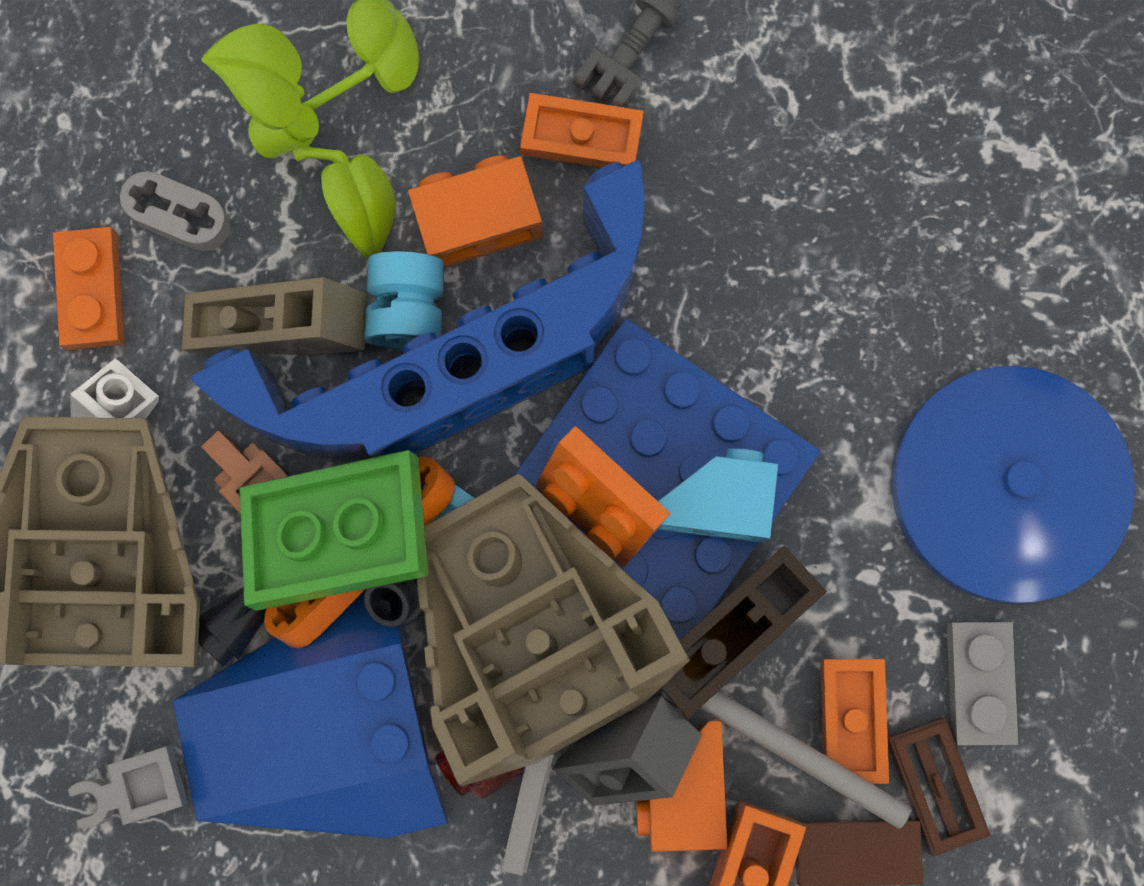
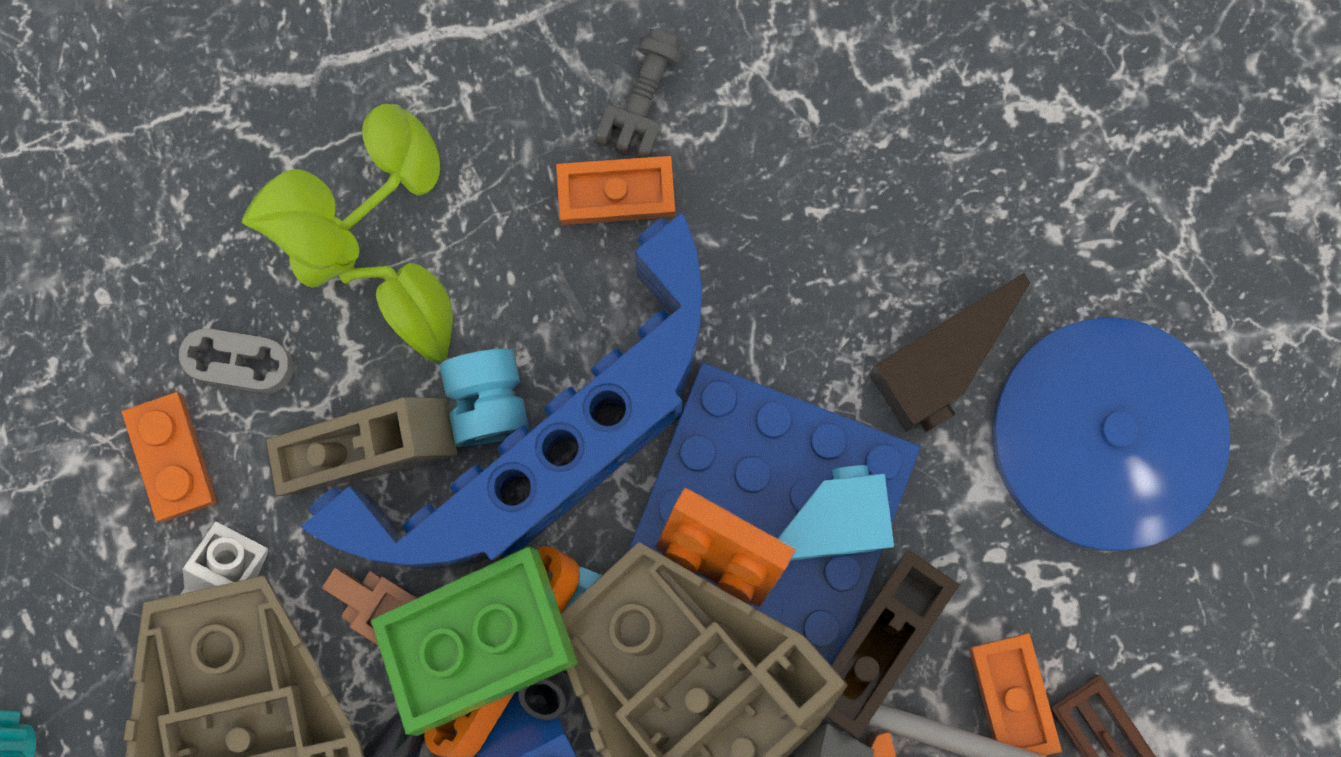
camera: 15 degrees left, 0 degrees up
(476, 210) = (532, 291): orange brick -> none
(855, 376) = (940, 365): none -> dark brown slope
(982, 683) = (1127, 633): light grey plate -> none

